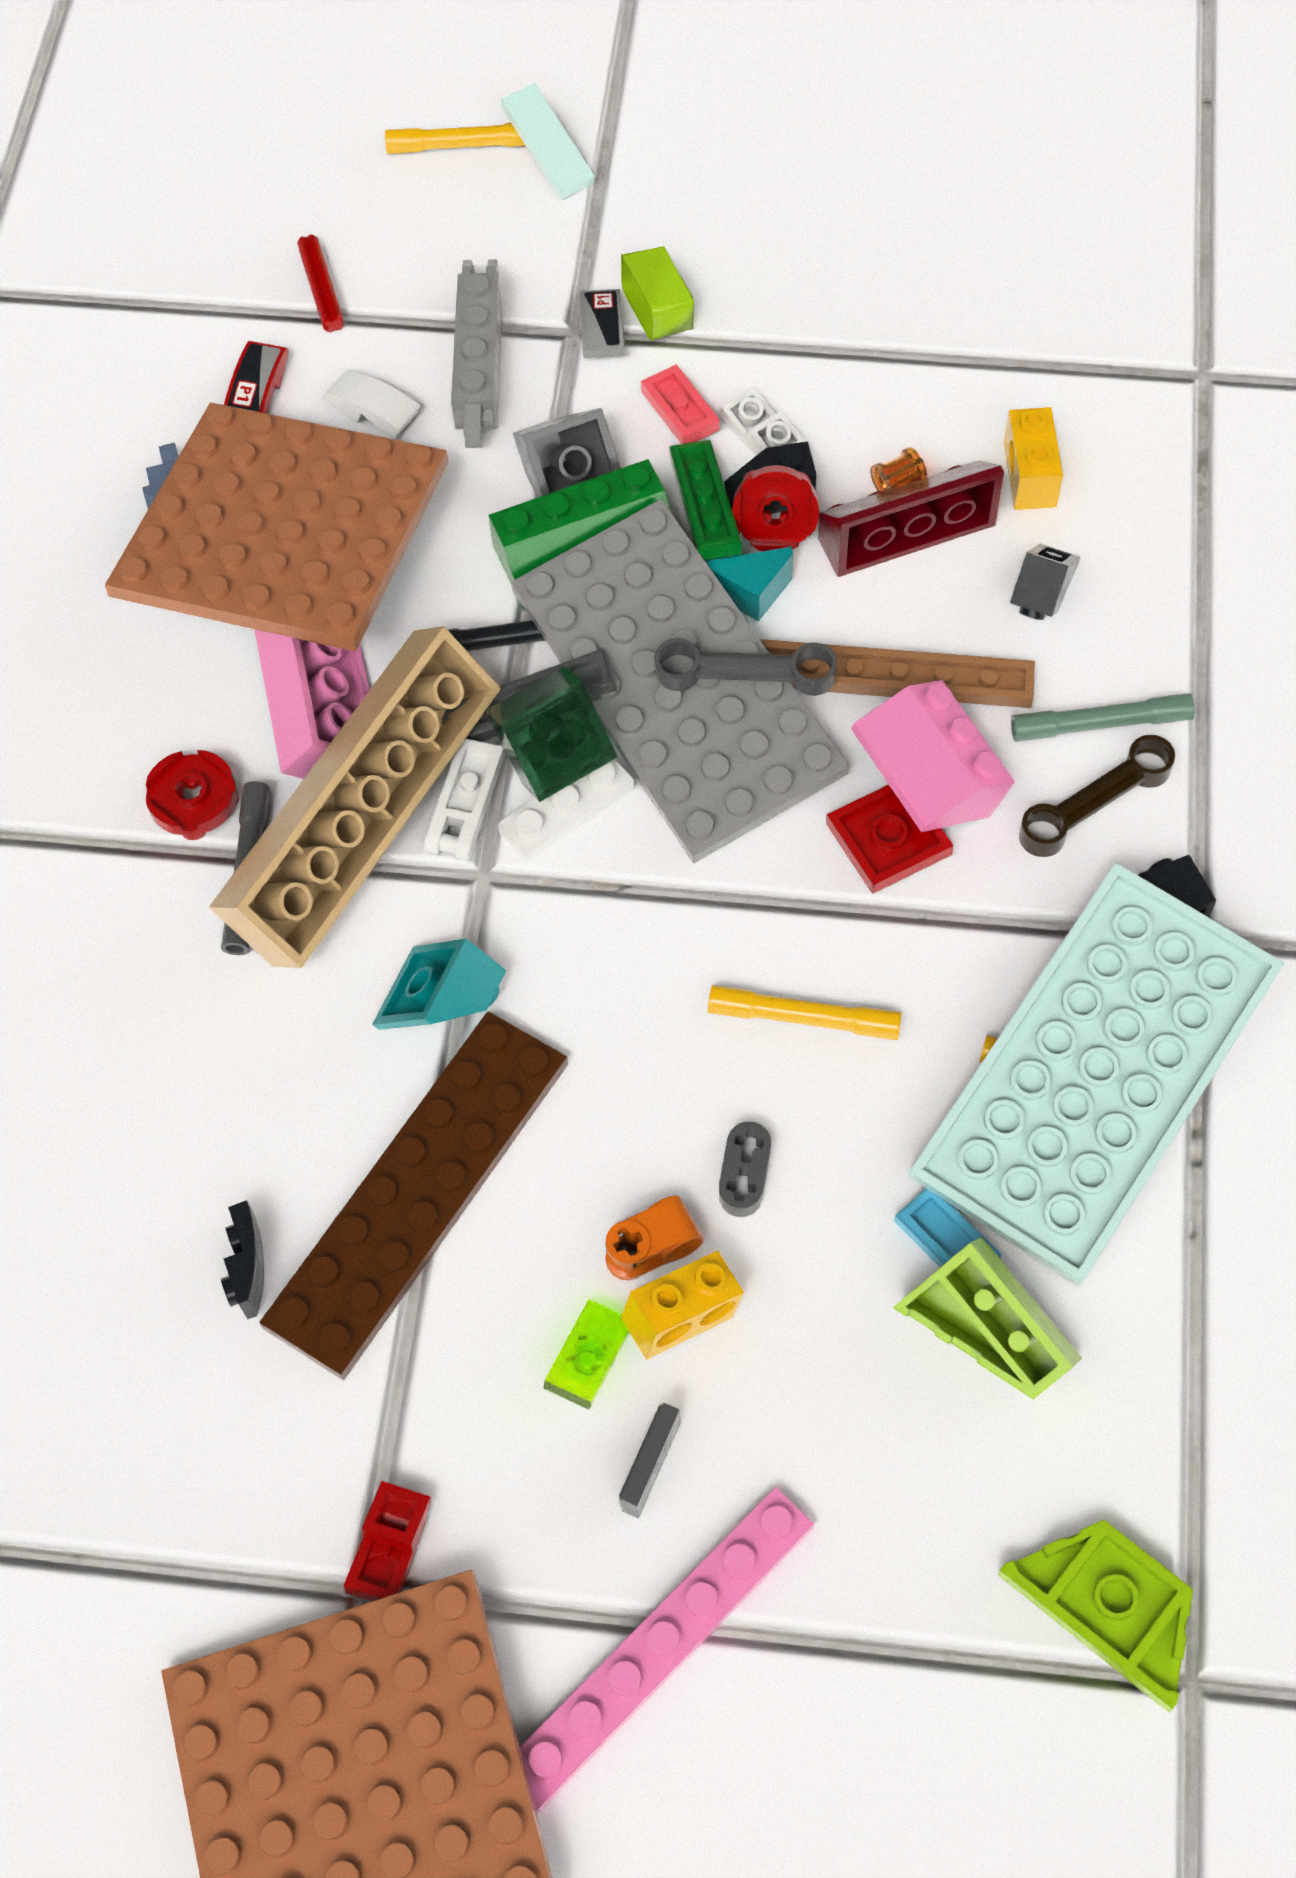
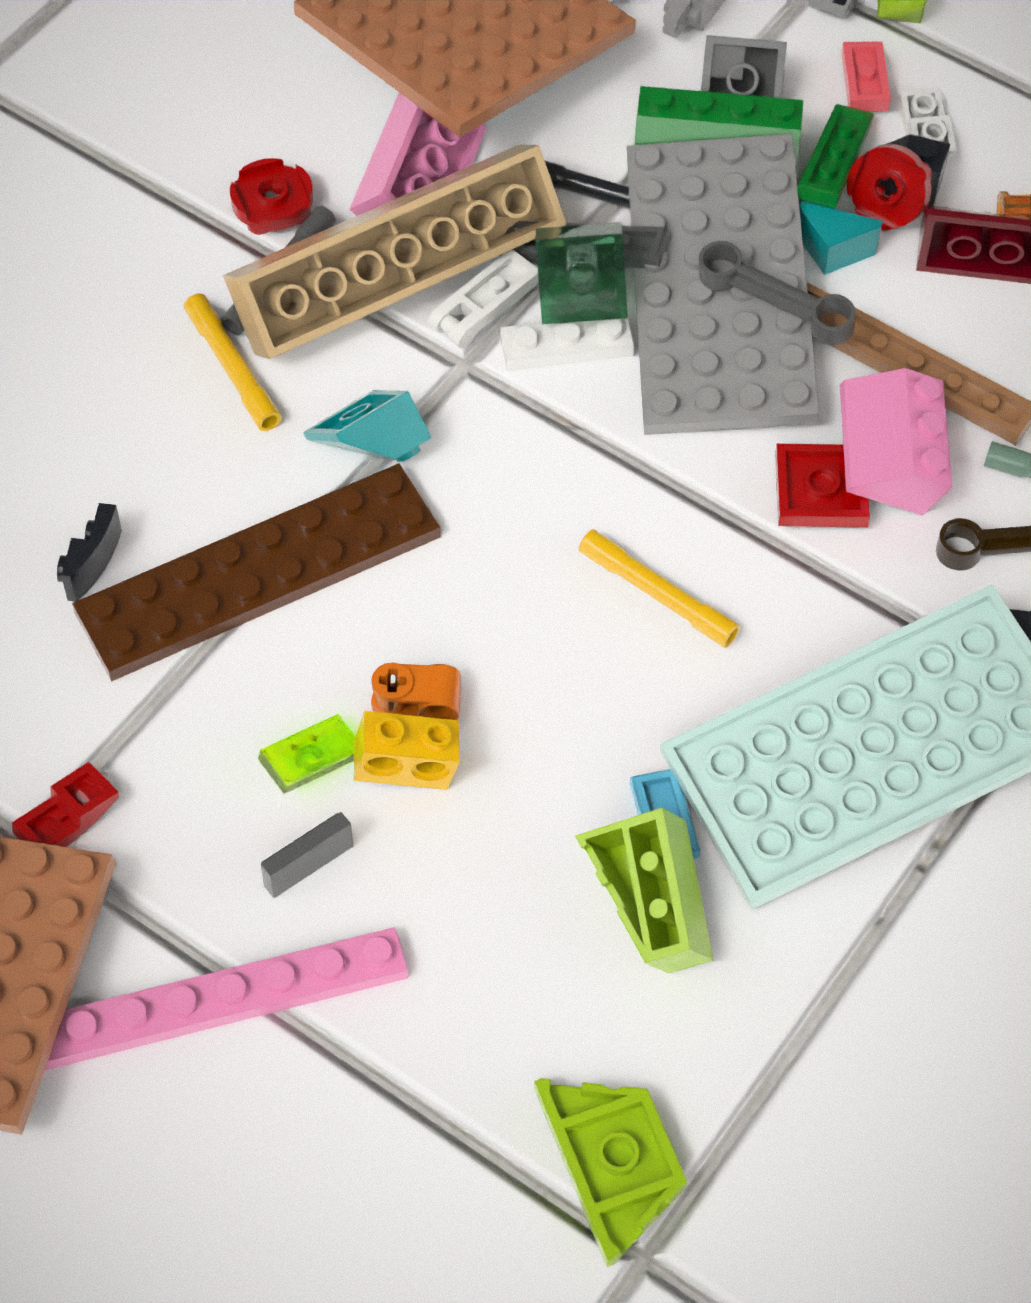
camera: 25 degrees right, 5 degrees down
(301, 1011) = (252, 394): none -> yellow piece
(734, 1167) = (523, 675): dark grey beam -> none

